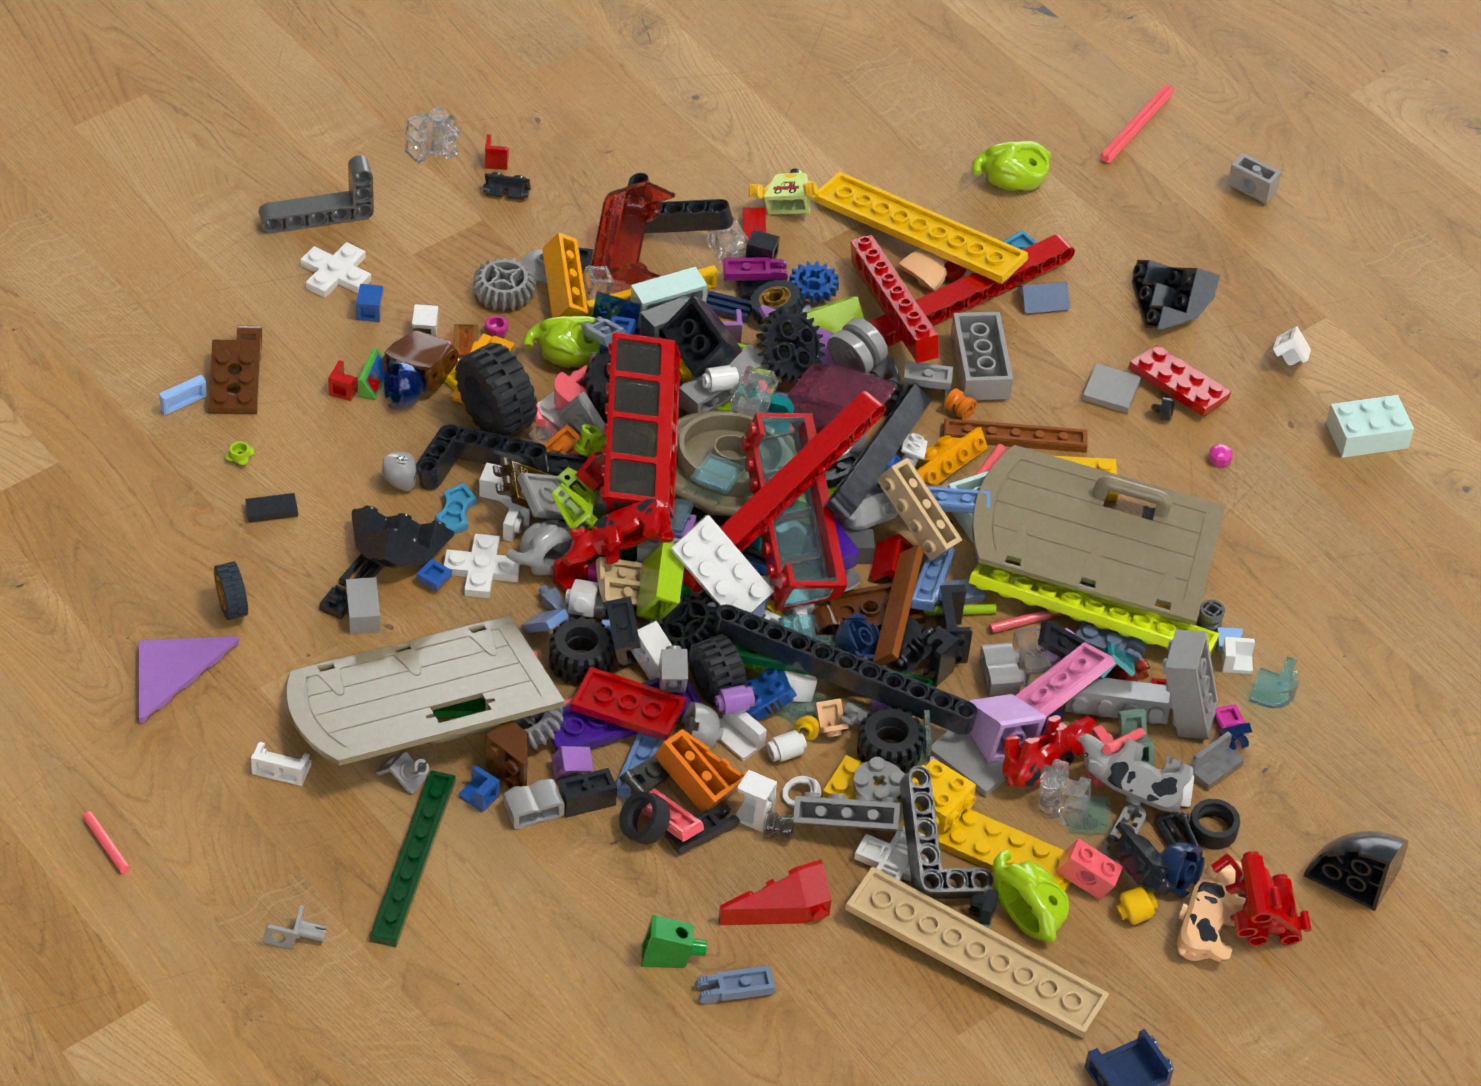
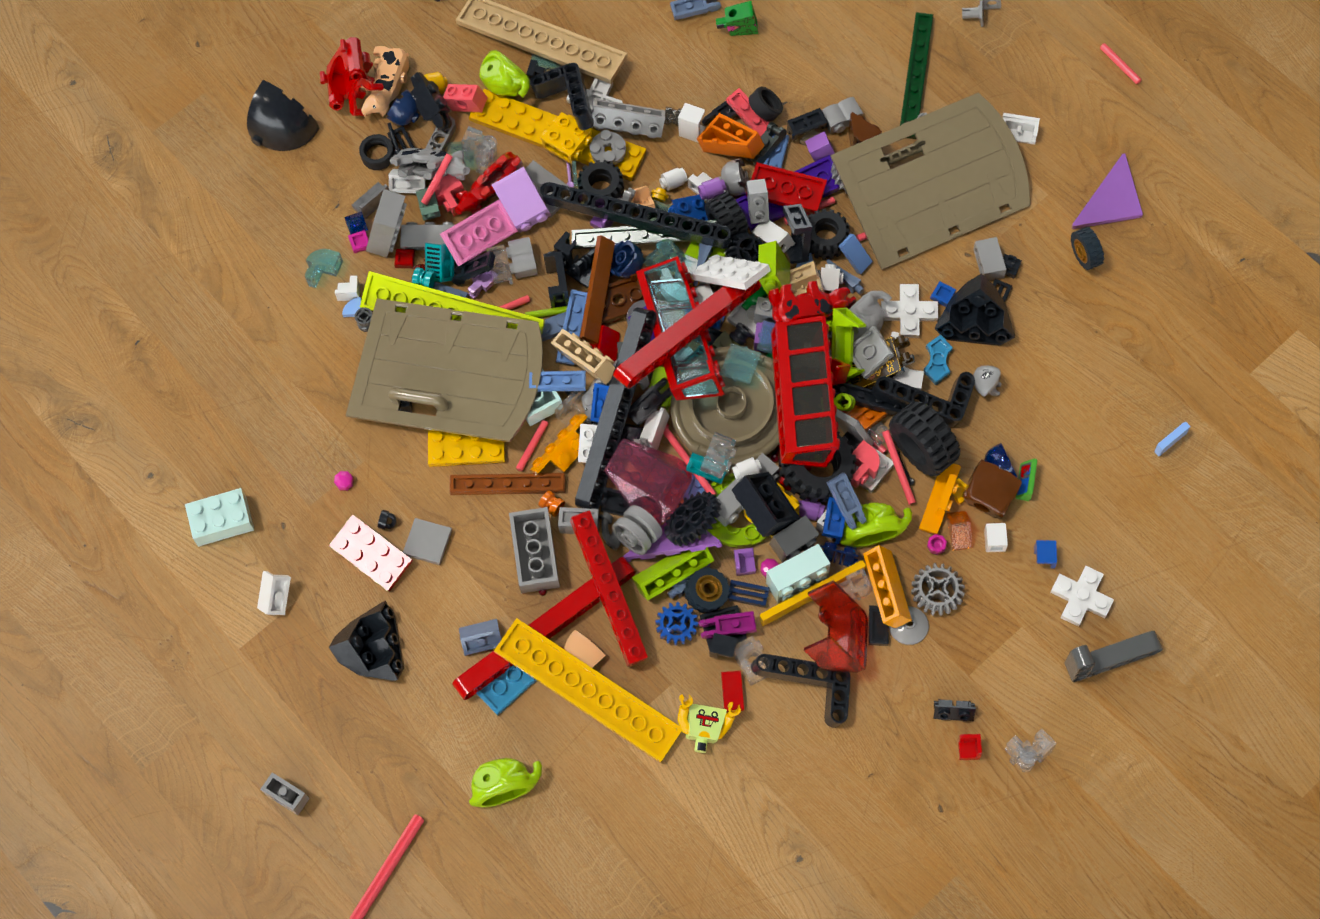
camera: 175 degrees left, 20 degrees up
(236, 354) = (1136, 483): reddish brown hinge -> none
(239, 453) = (1113, 387): lime plate -> none
(271, 507) = (1076, 345): black tile -> none
(341, 384) = (1048, 469): red panel -> none
(481, 790) = (877, 119): blue panel -> none
(792, 900) = (666, 60): red wedge -> none
(813, 783) = (654, 153): white piece -> none
(1140, 642) = (424, 278): none -> teal wheel

